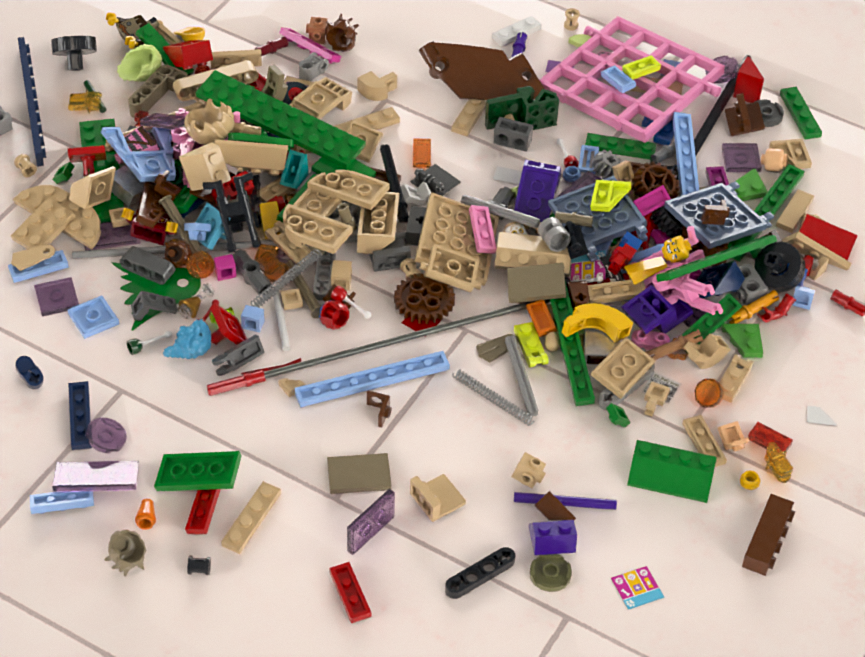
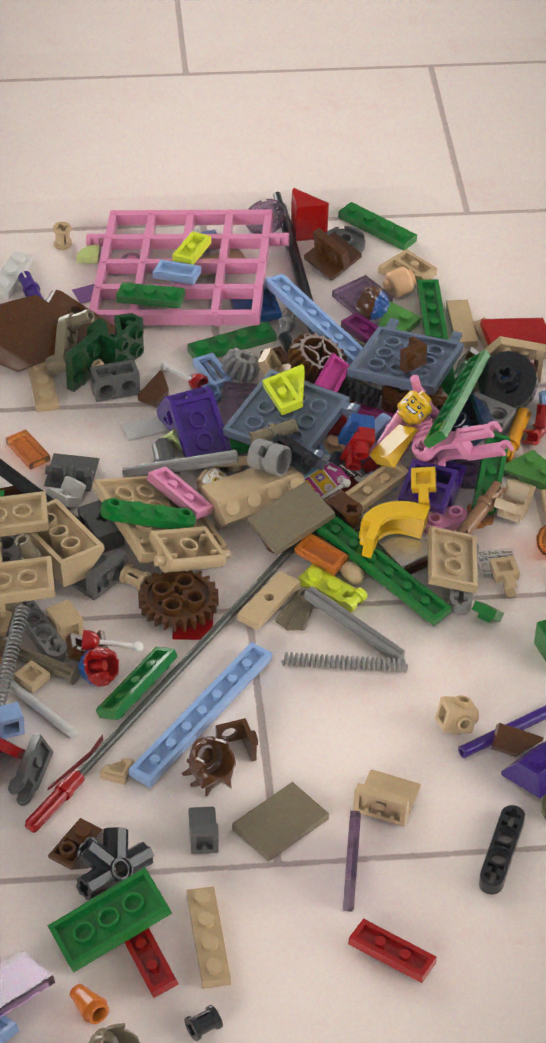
camera: 35 degrees left, 5 degrees down
(220, 418) = (66, 850): none -> reddish brown slope
(223, 432) = (106, 856): none -> black piece
(303, 454) = (203, 830): none -> dark grey bracket
(341, 411) = (210, 763): none -> reddish brown hair
(350, 337) = (136, 683): none -> green plate
(444, 232) = (147, 514): none -> green plate
(481, 330) = (268, 600): none -> tan tile
(507, 84) = (67, 338): none -> dark tan beam
(538, 153) = (154, 391): none -> reddish brown tile
(586, 87) = (150, 295): none -> green plate
(640, 305) = (422, 482): none -> yellow plate
(736, 164) = (373, 303): none -> piece

